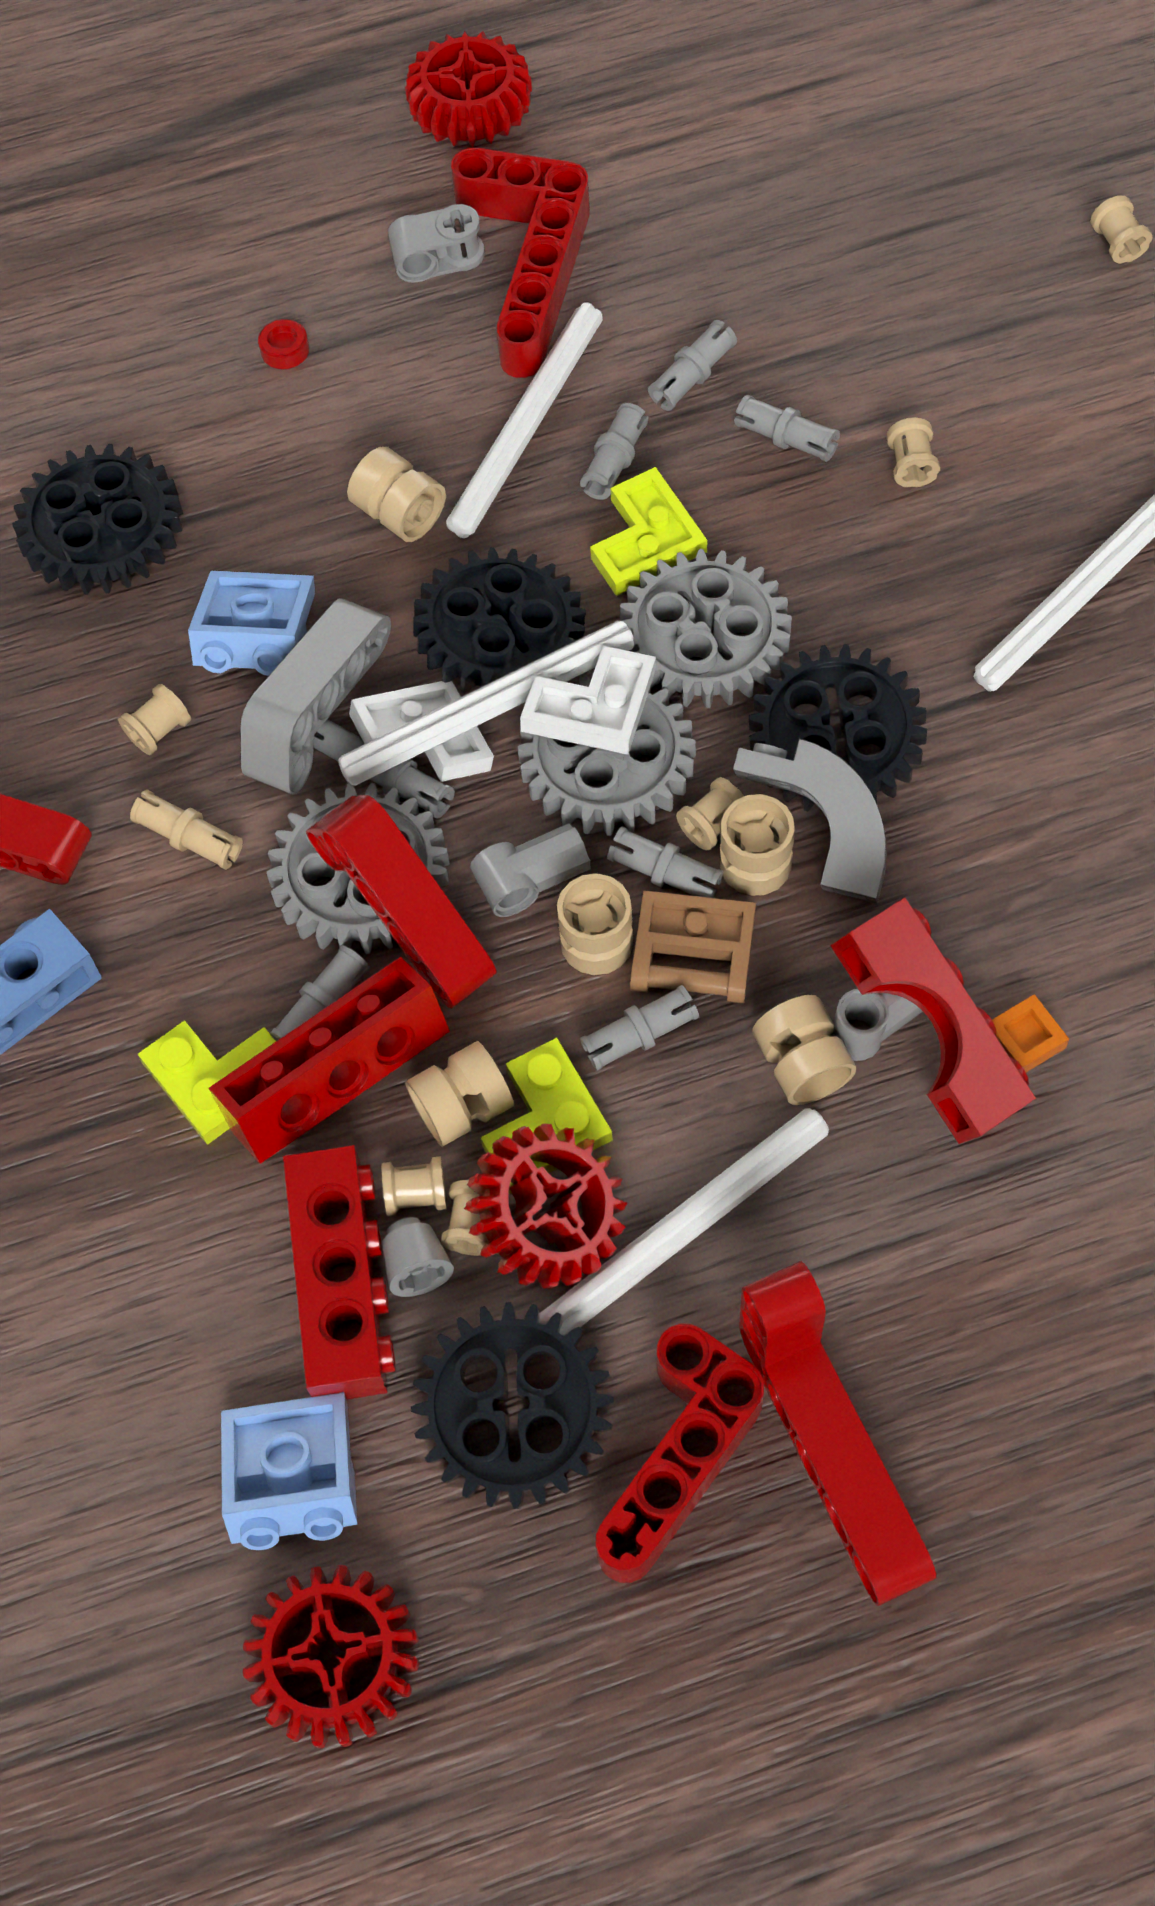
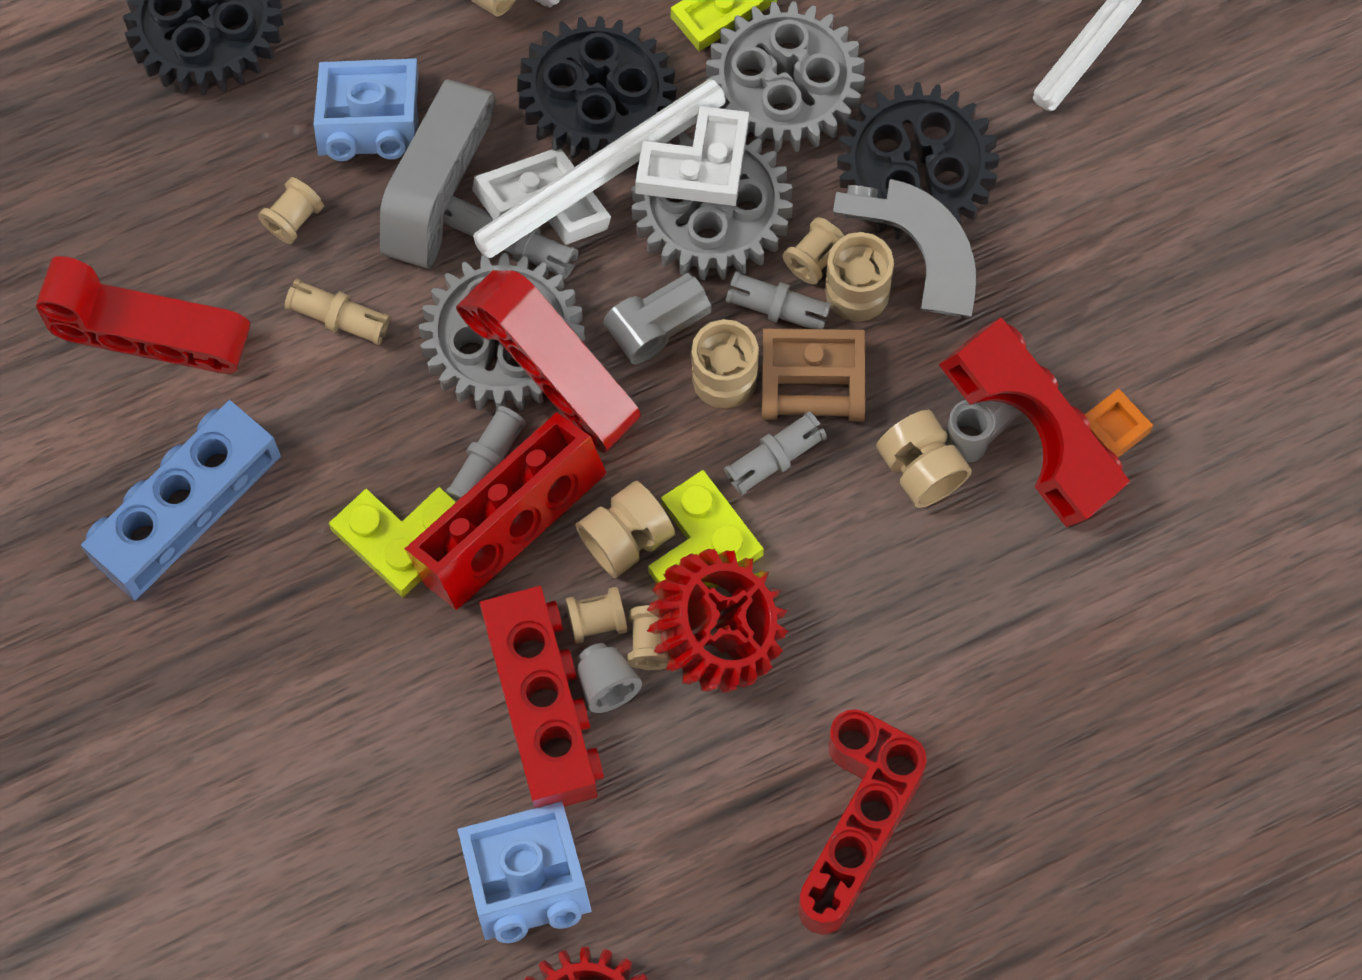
camera: 10 degrees left, 5 degrees up
(455, 1408) = (761, 788): black gear -> none
(687, 1221) = (835, 624): white axle -> none
(783, 1335) = (936, 712): red beam -> none

